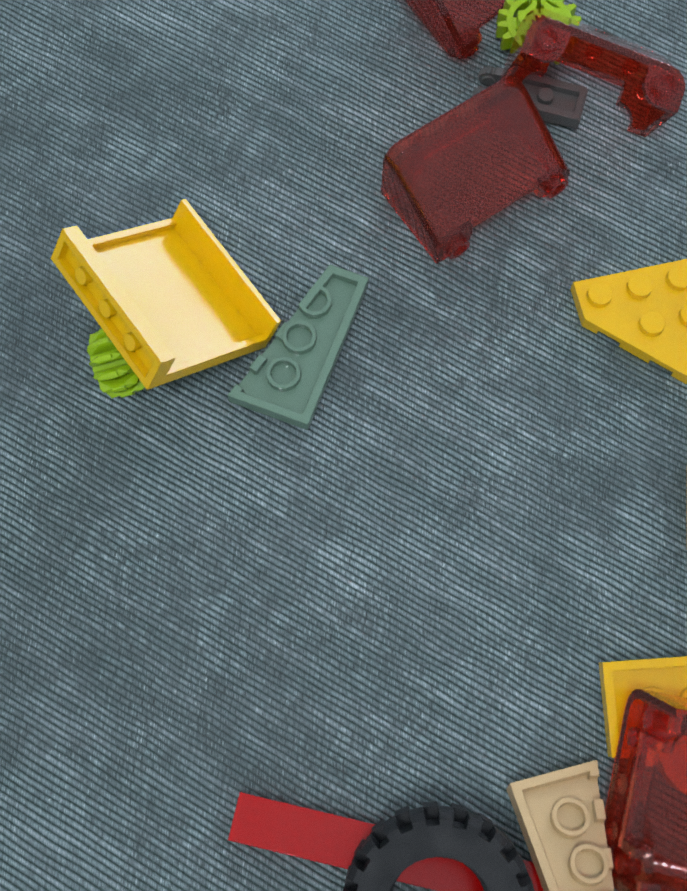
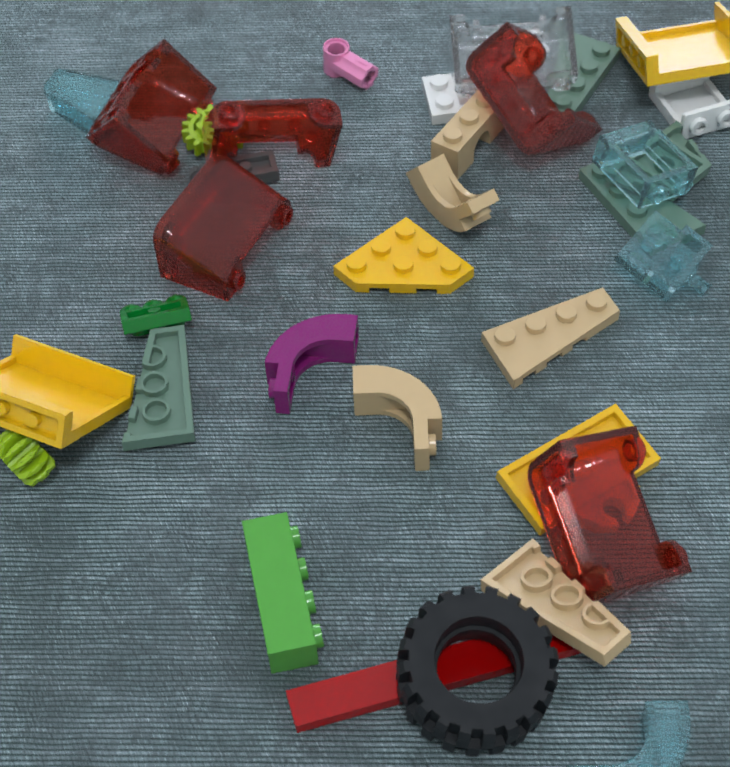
camera: 25 degrees left, 20 degrees down
(294, 673) = (280, 592): none -> bright green brick
(346, 245) = (155, 314): none -> green plate
(482, 374) = (305, 345): none -> magenta arch
(555, 500) = (403, 397): none -> tan arch

